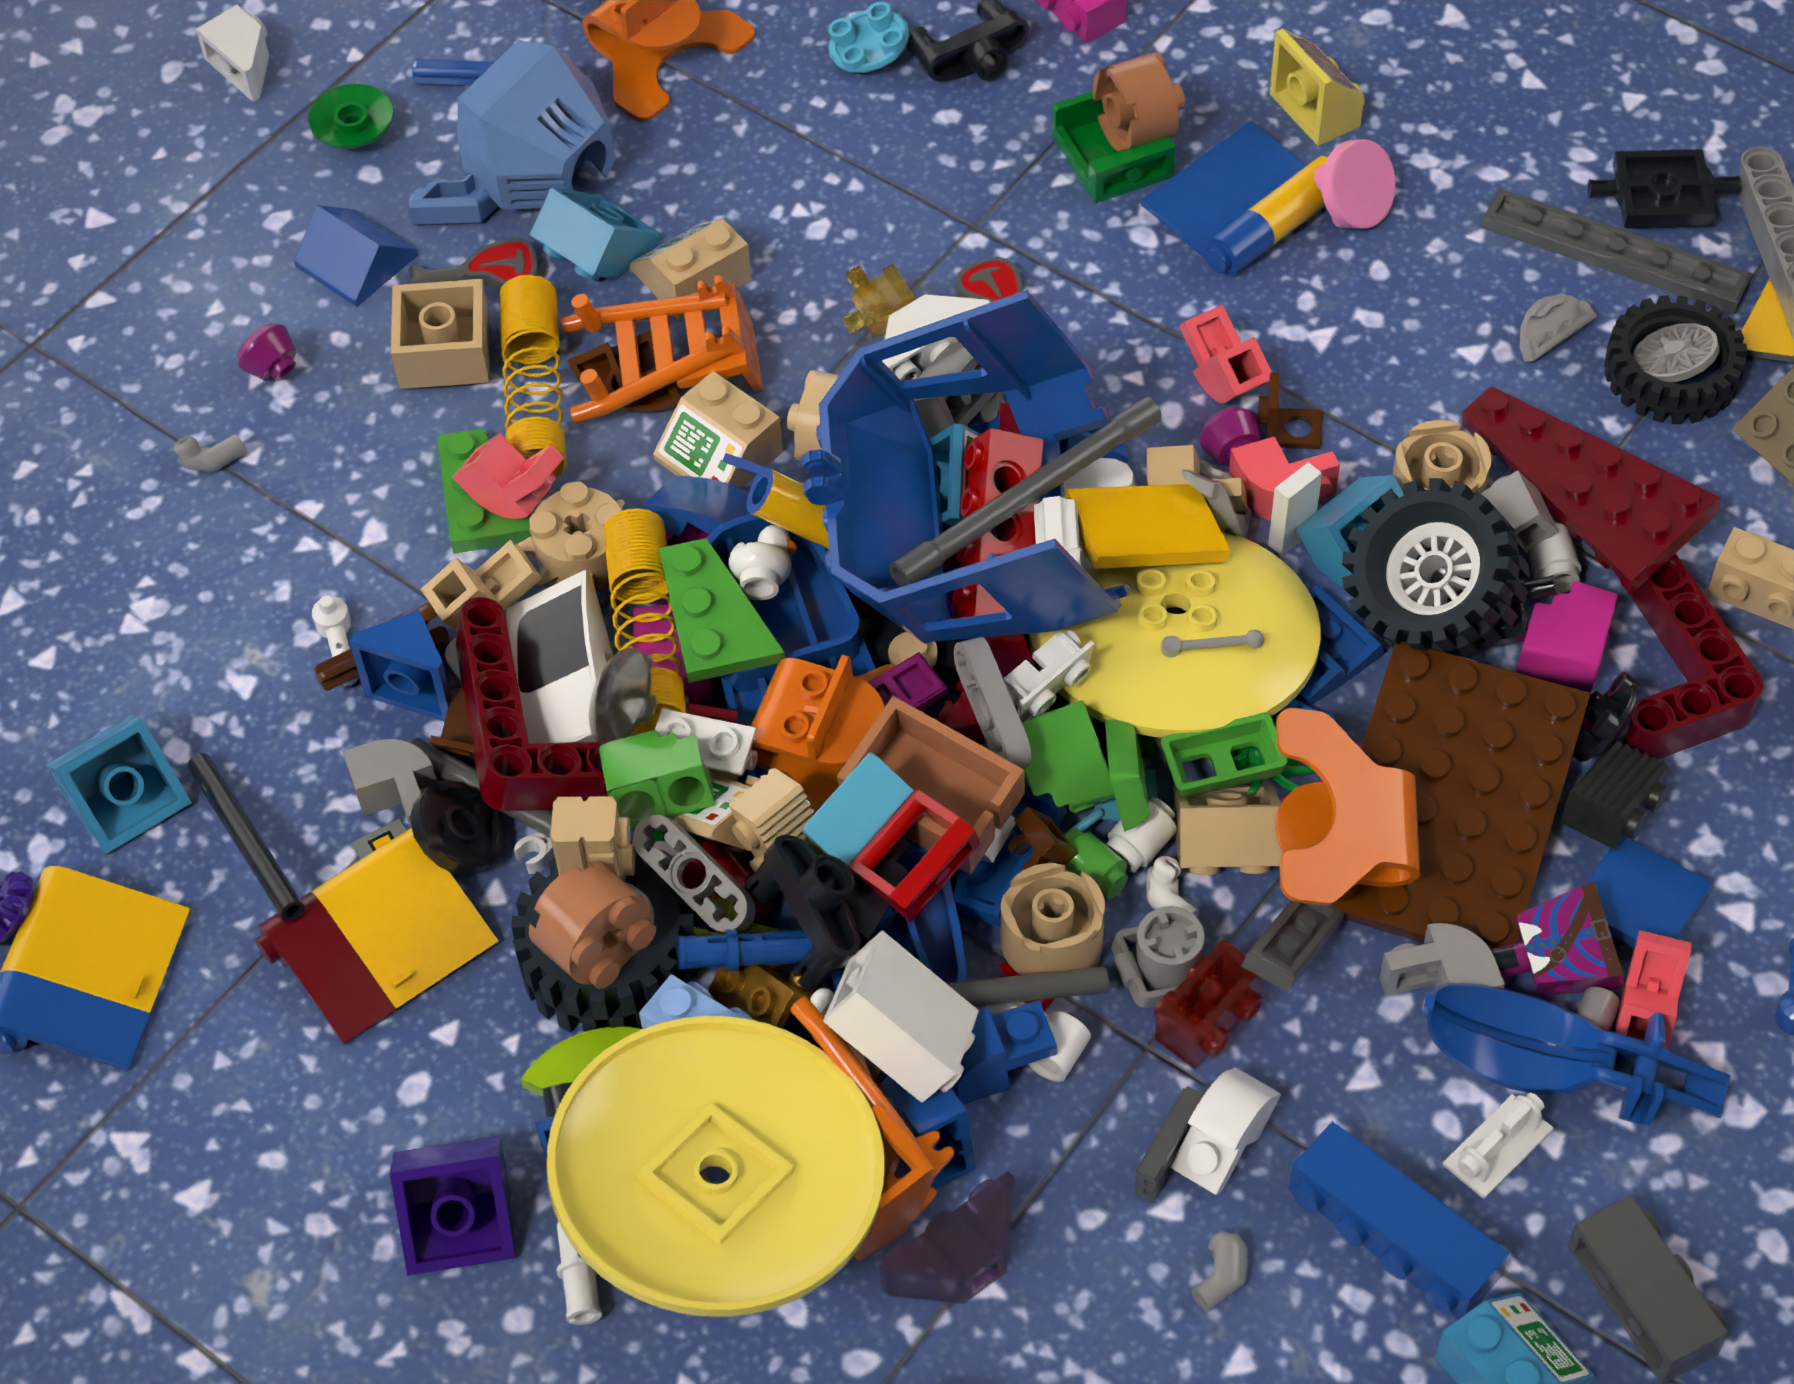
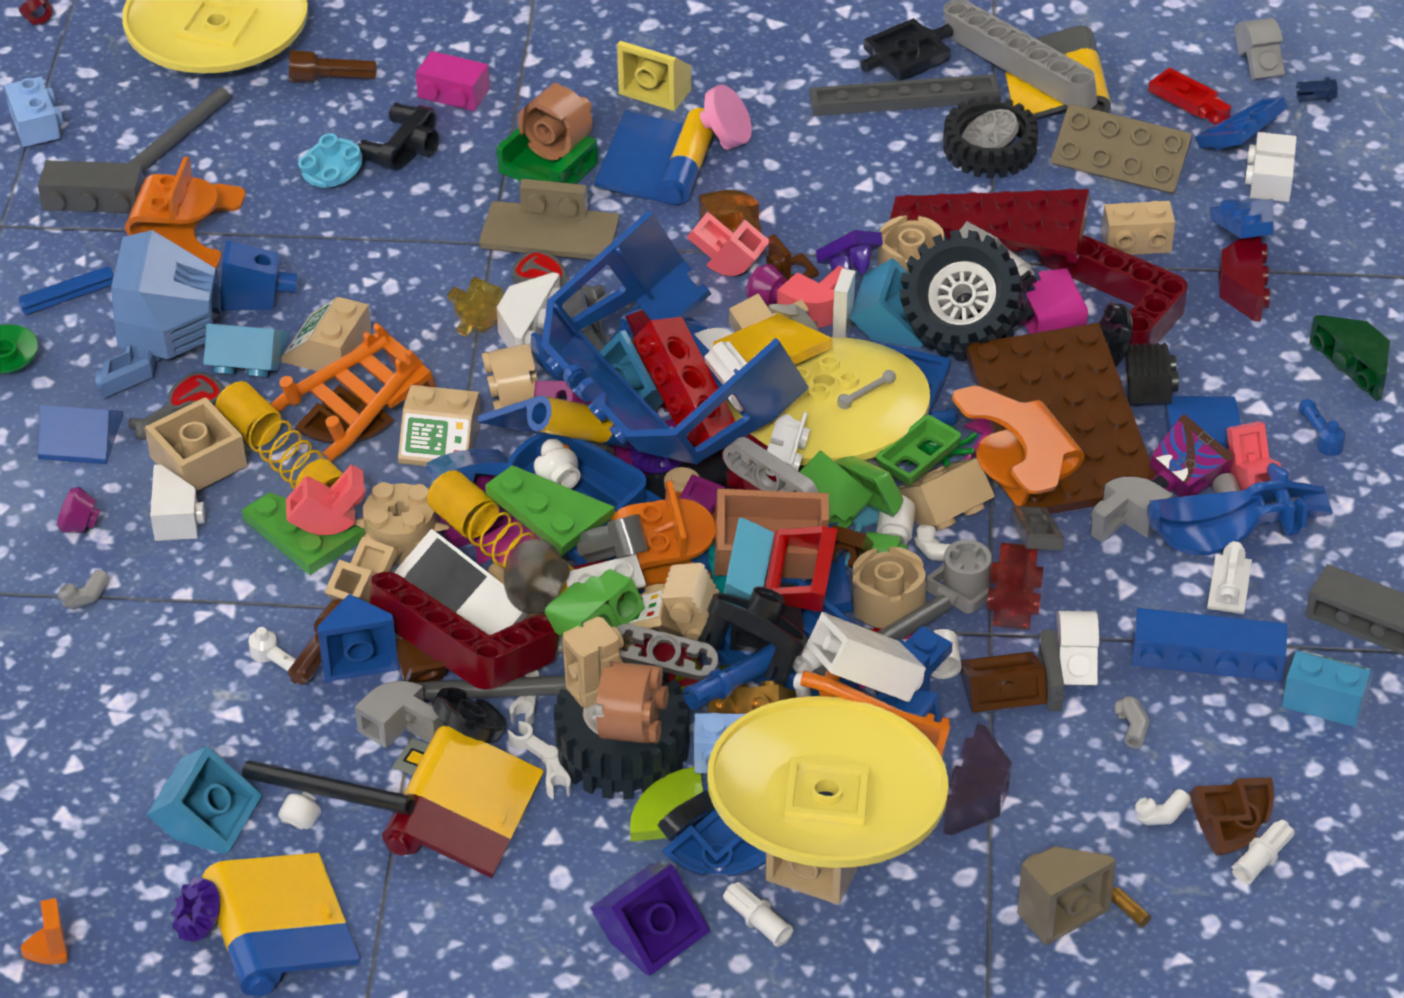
camera: 35 degrees left, 10 degrees down
(212, 845) = (299, 810): none -> white piece
(366, 397) = (174, 507): none -> white slope
(504, 952) = (549, 754): none -> white piece
(659, 149) = (252, 278): none -> blue torso
(743, 697) = (617, 539): none -> dark grey piece
(932, 553) = (721, 293): dark grey piece -> none
(1048, 232) = (551, 220): none -> dark tan bracket
(1097, 1135) = (1003, 681): none -> reddish brown tile
(1268, 314) = (730, 208): none -> clear orange brick
(1359, 443) = (851, 249): none -> dark purple tile
(1551, 322) = (902, 147): light grey plate -> none

